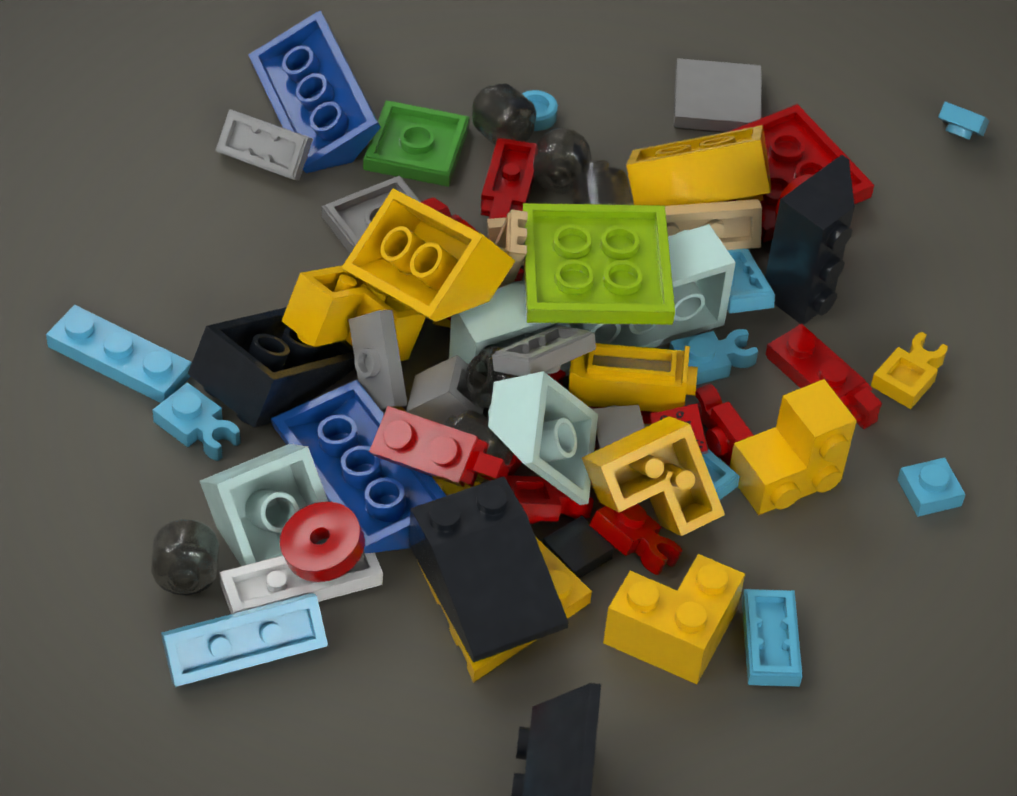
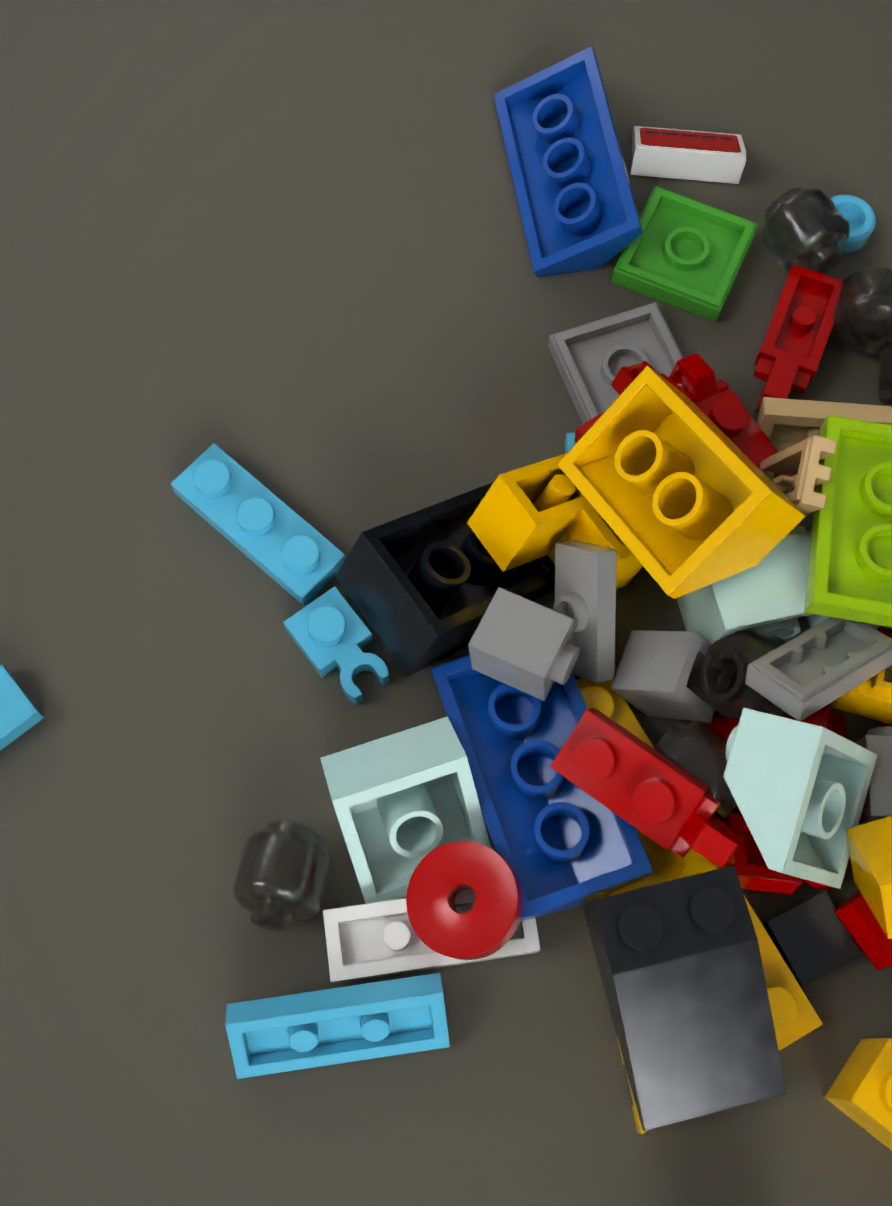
camera: 15 degrees right, 20 degrees up
(264, 144) = (491, 234): light grey plate -> none
(336, 380) = (523, 644): none -> light grey brick
(407, 79) = (687, 154): none -> white slope

